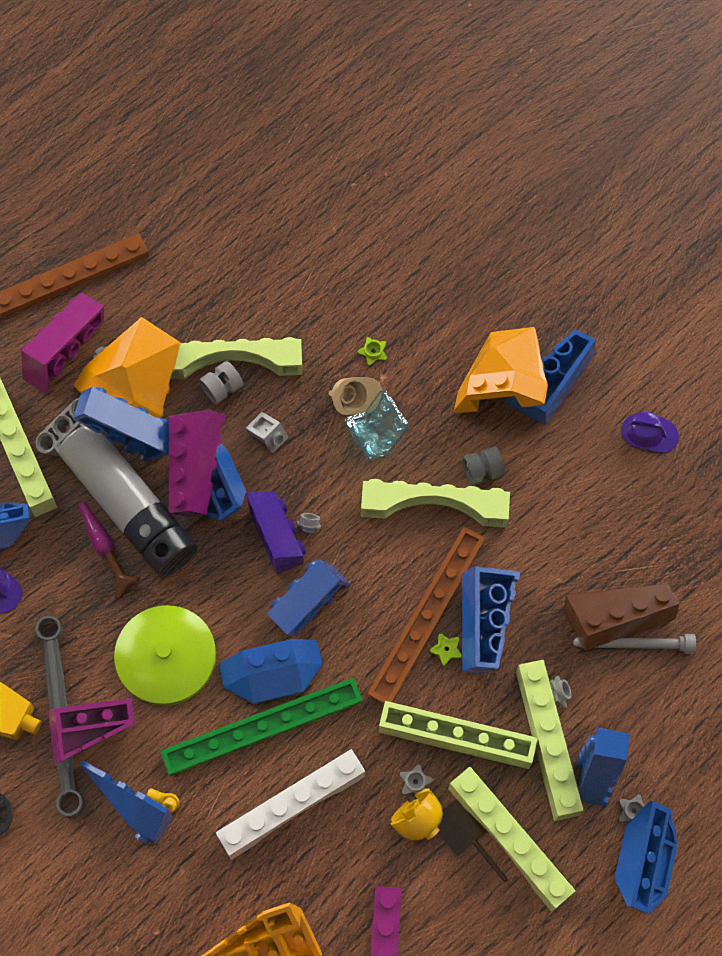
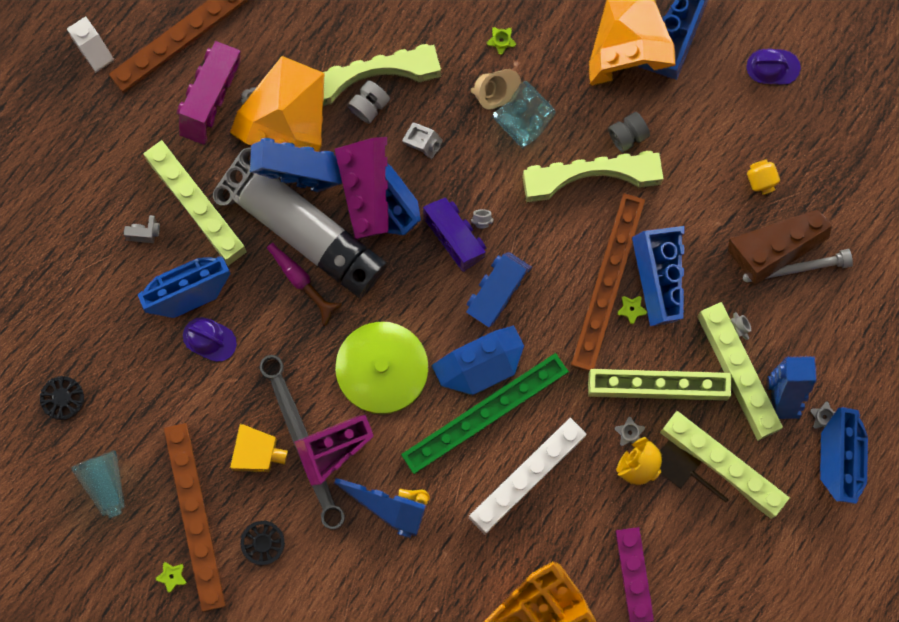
camera: 15 degrees left, 10 degrees up
(616, 540) = (763, 176): none -> yellow head

